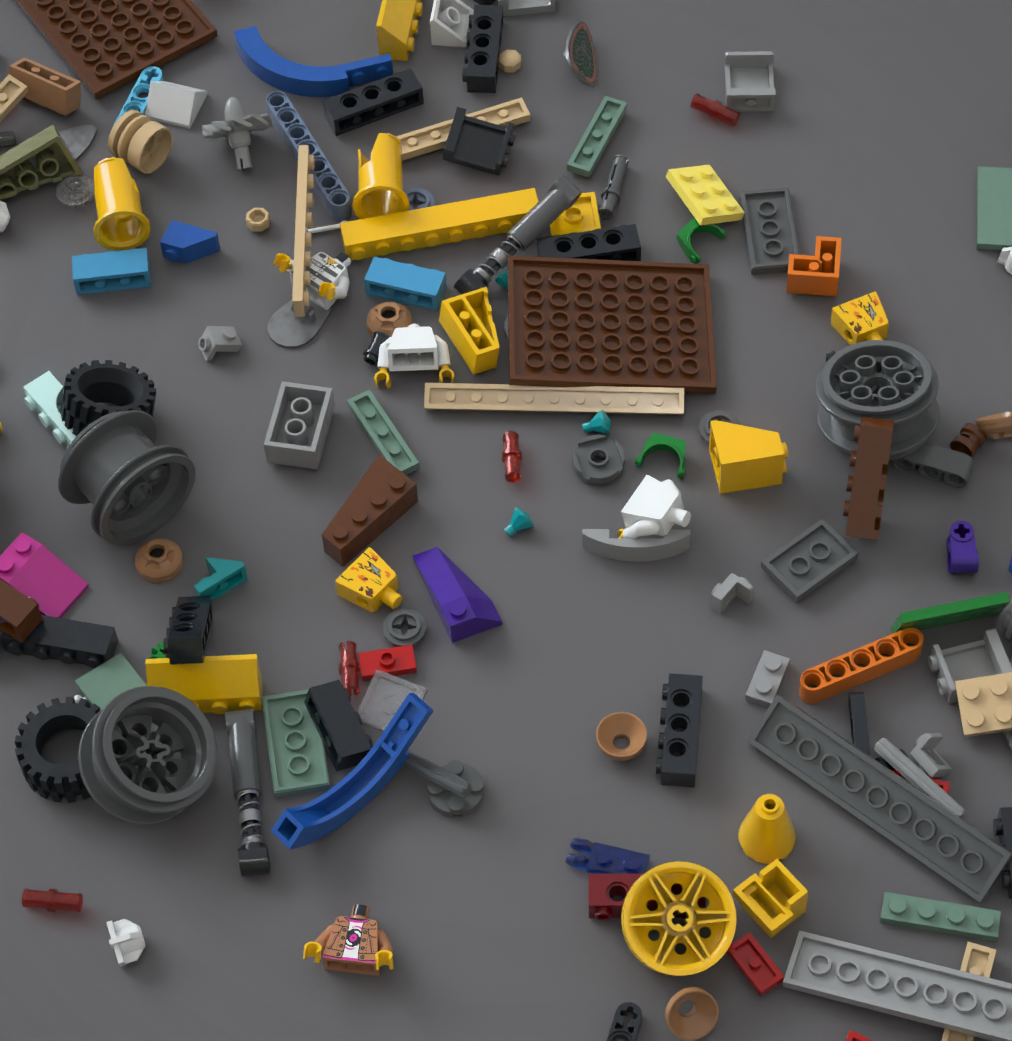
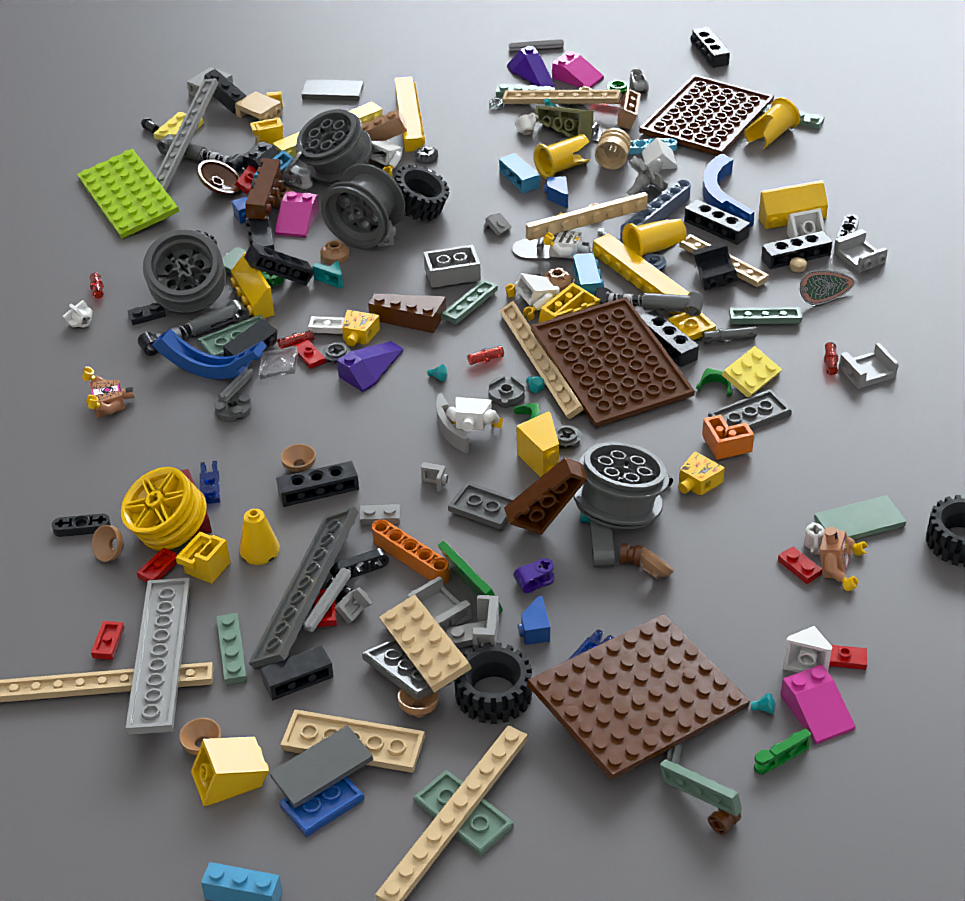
camera: 65 degrees right, 15 degrees down
(163, 848) = (146, 313): none -> black plate
(337, 619) = (326, 325): none -> white plate

